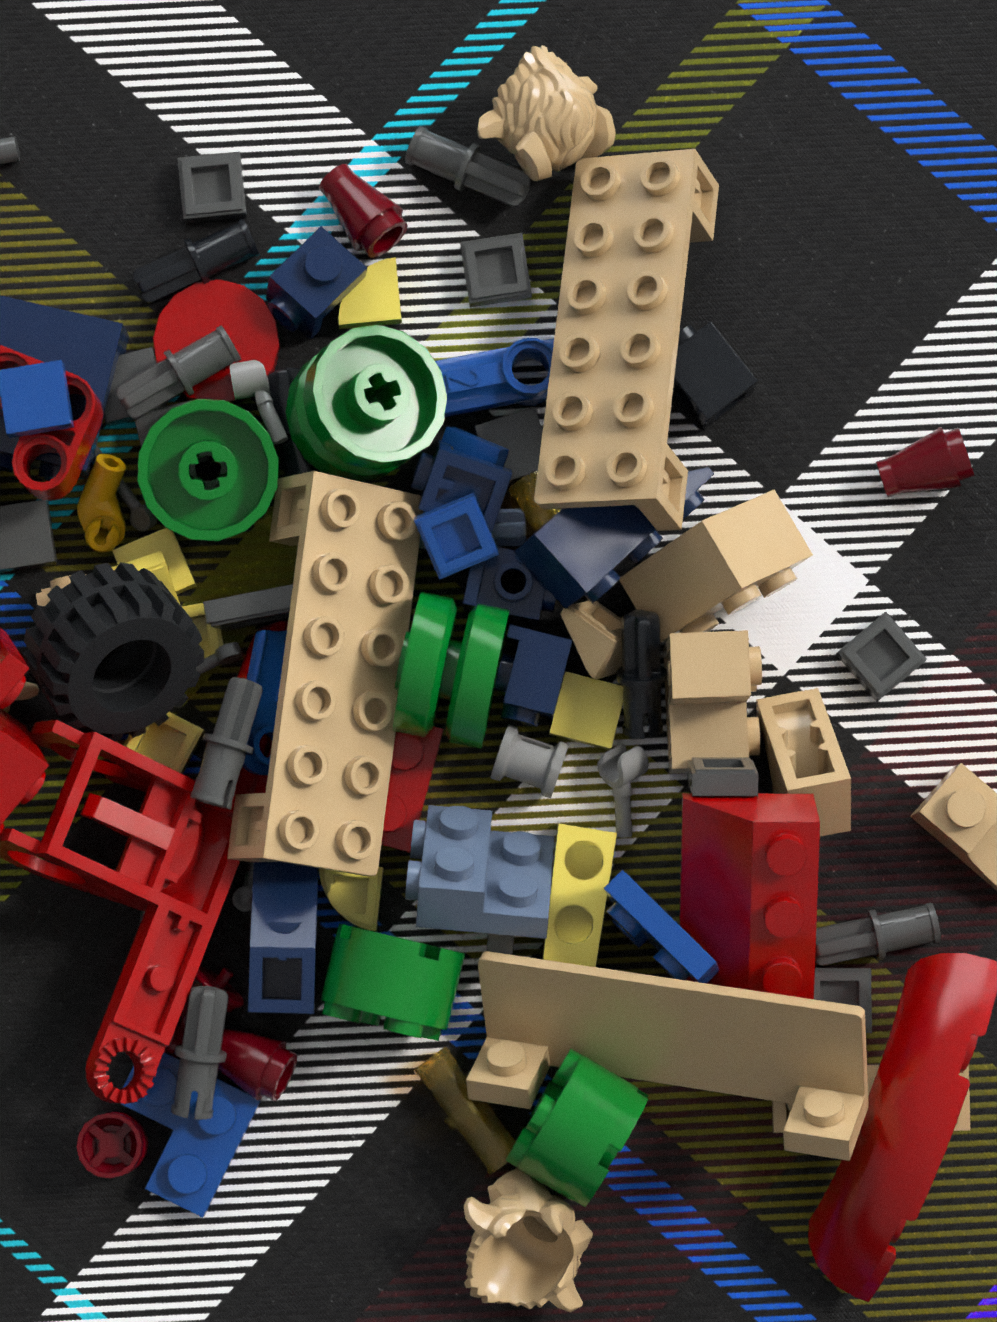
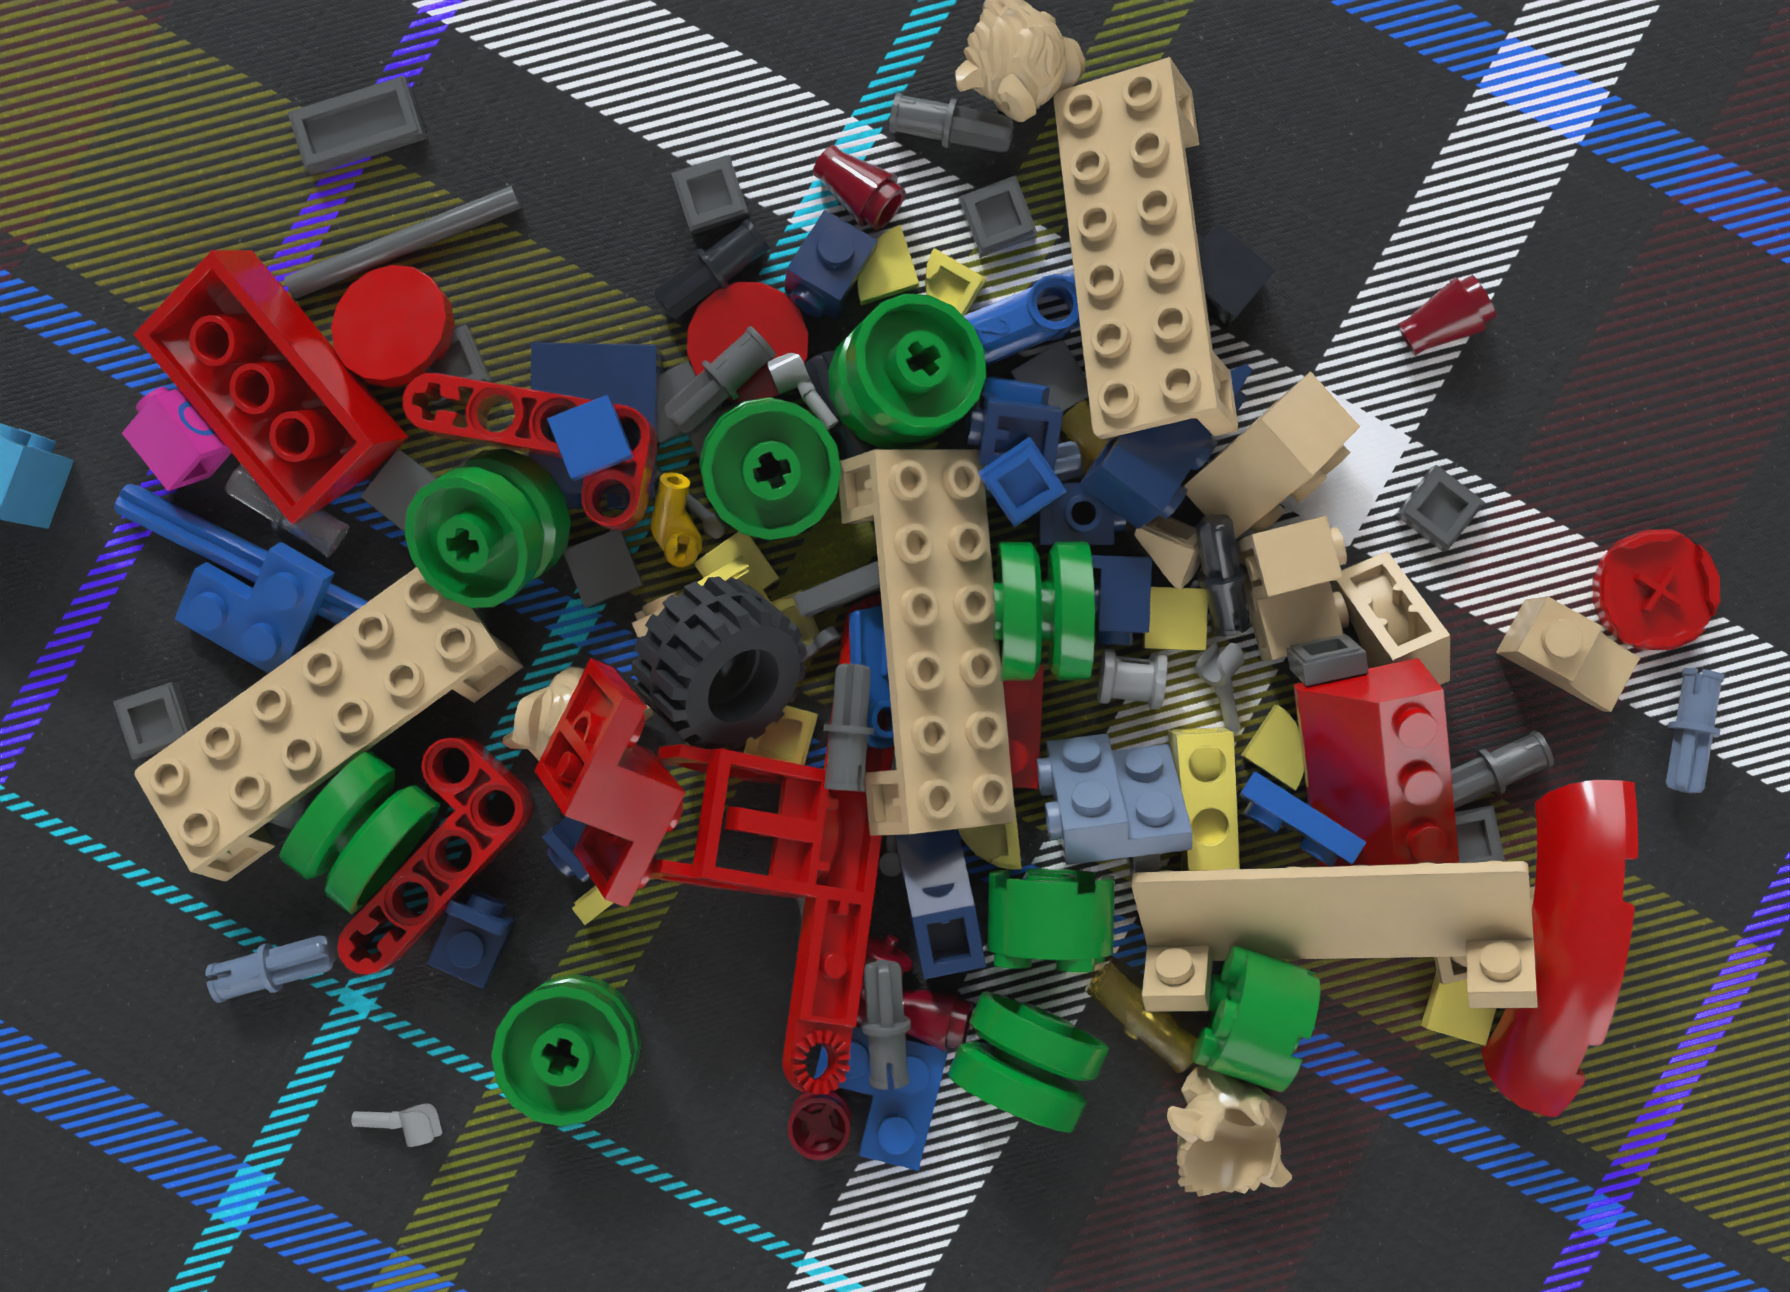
camera: 10 degrees left, 5 degrees up
(341, 1114) = (1028, 1062): none -> green wheel
(436, 326) = (952, 282): none -> light yellow tile
(660, 865) = (1278, 748): none -> light yellow tile
(795, 1175) = (1450, 1013): none -> light yellow tile

